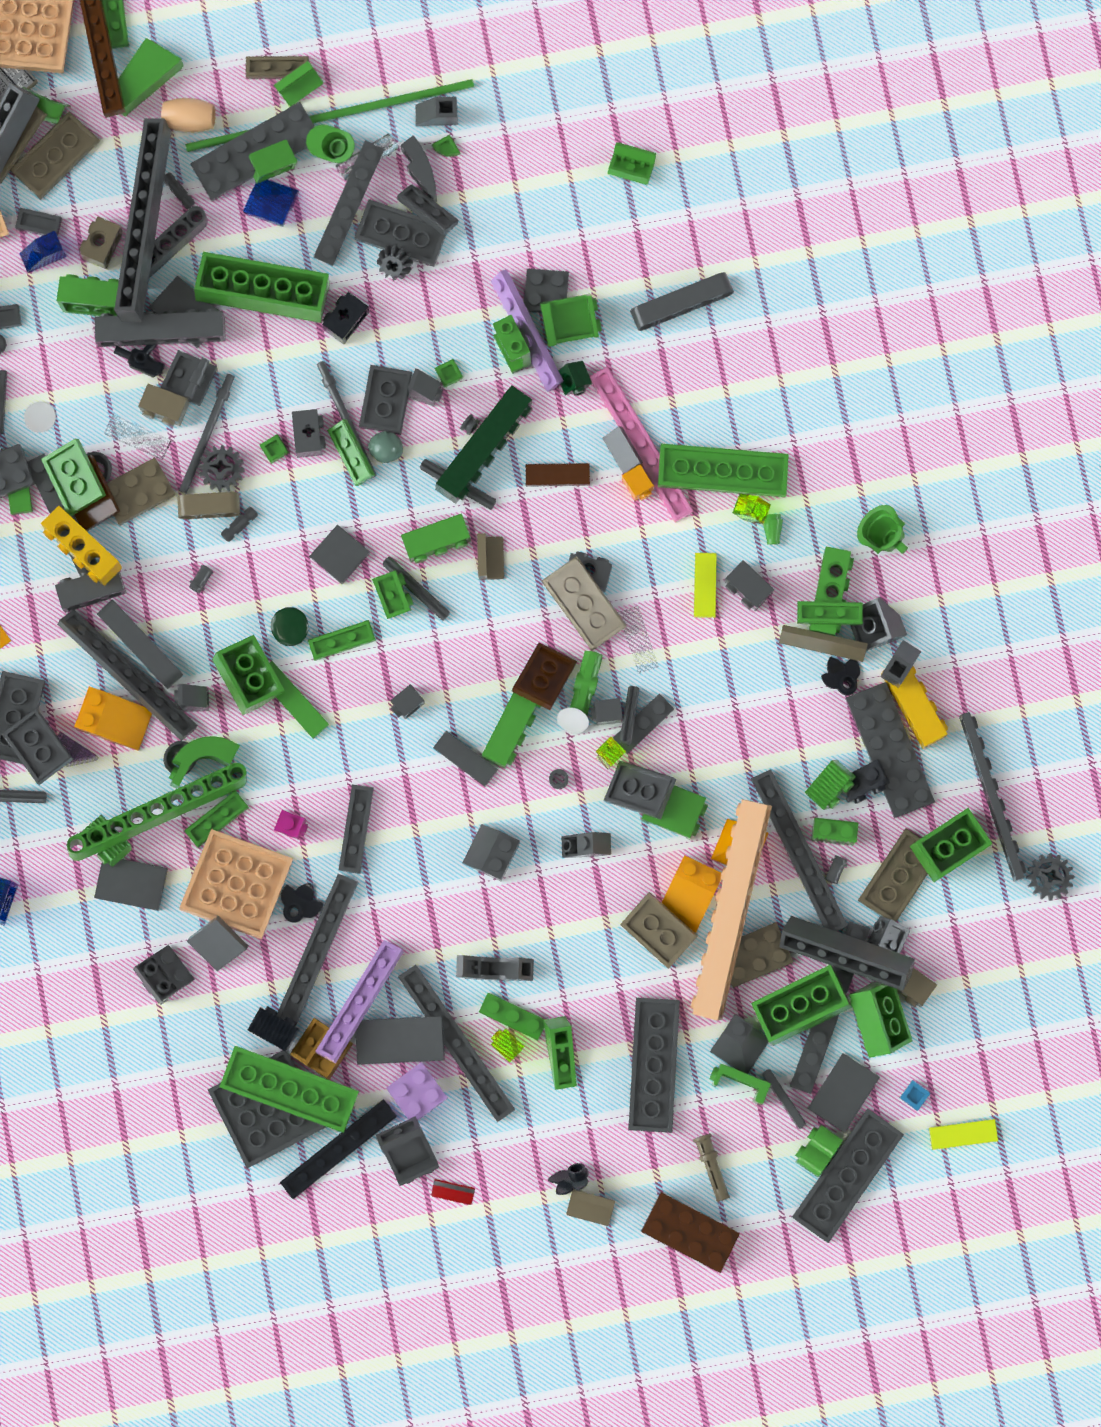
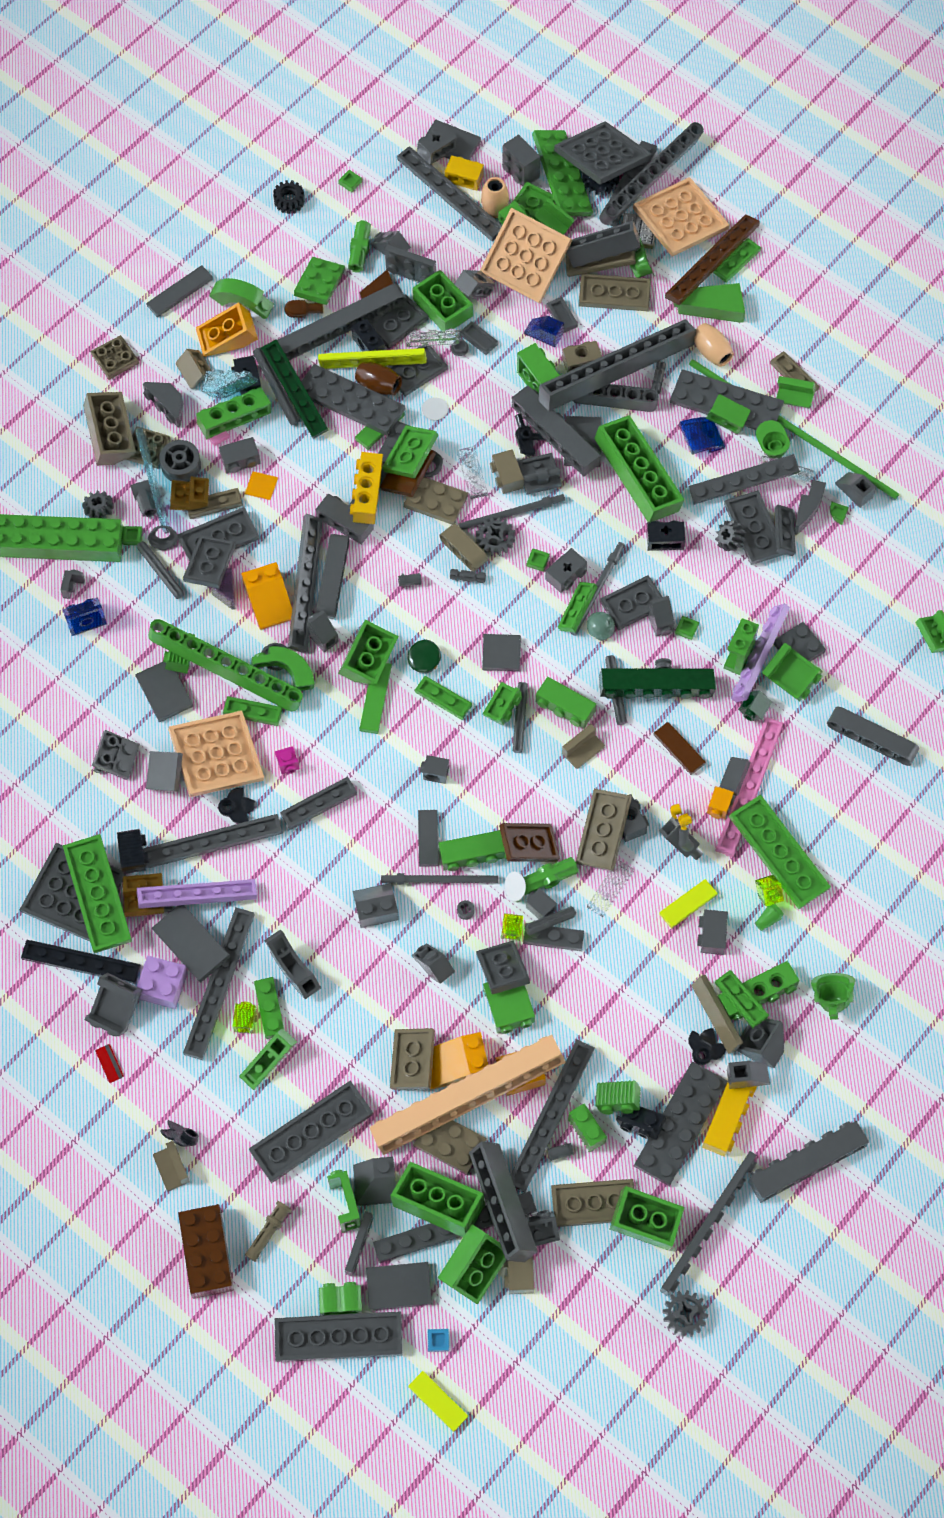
camera: 50 degrees right, 15 degrees down
(486, 811) = (401, 878): none -> dark grey bar
(643, 543) = (679, 836): none -> dark grey torso
(1005, 673) = (808, 1161): none -> dark grey brick

